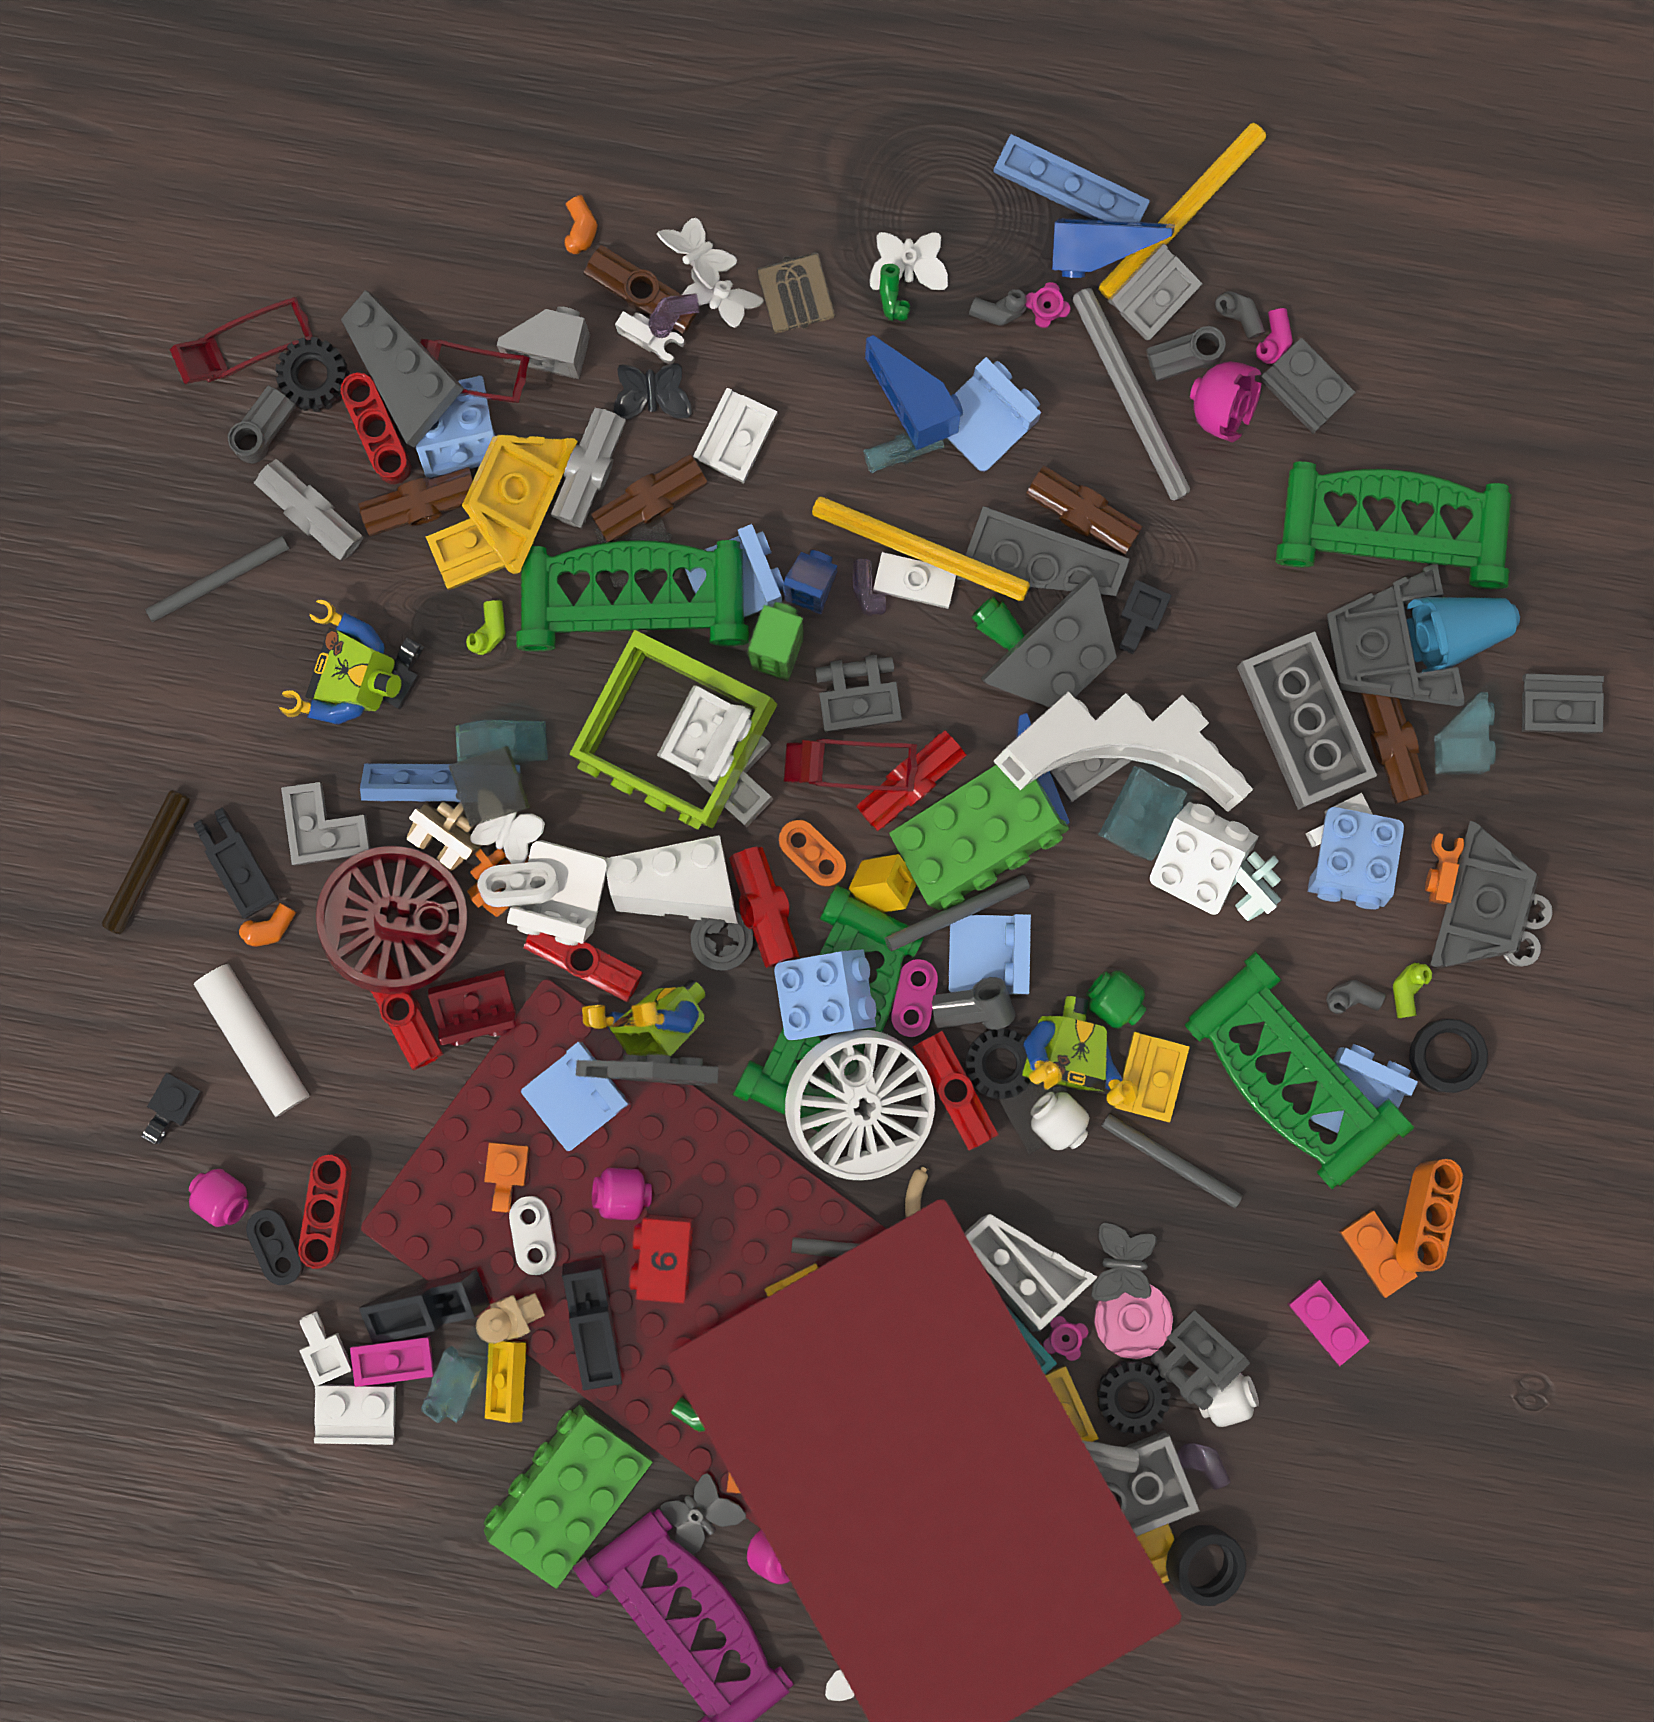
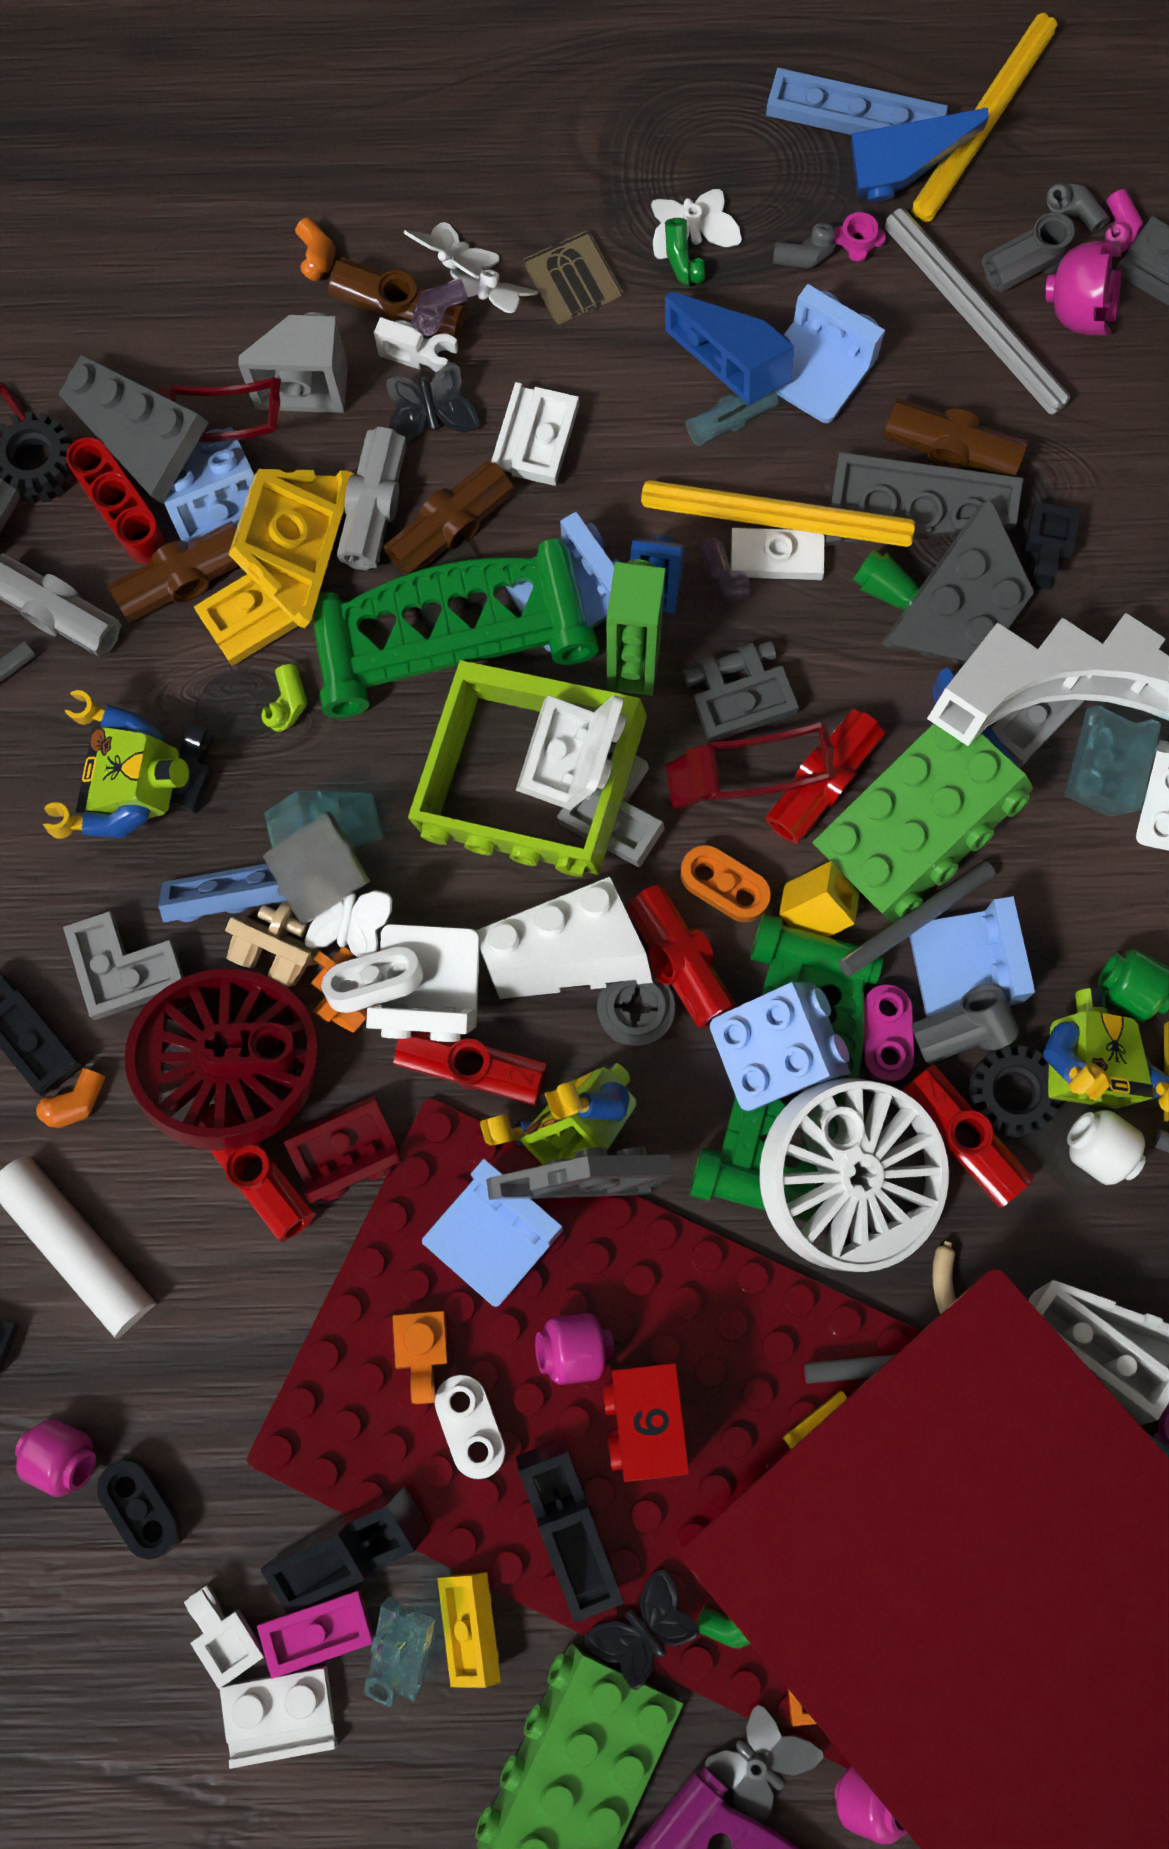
camera: 10 degrees left, 10 degrees down
(312, 1225) = (183, 1471): red beam -> none
(508, 1318) = (458, 1544): tan hips -> none
(626, 1414) = (637, 1645): none -> black piece
(1155, 292) = (977, 197): light grey plate -> none

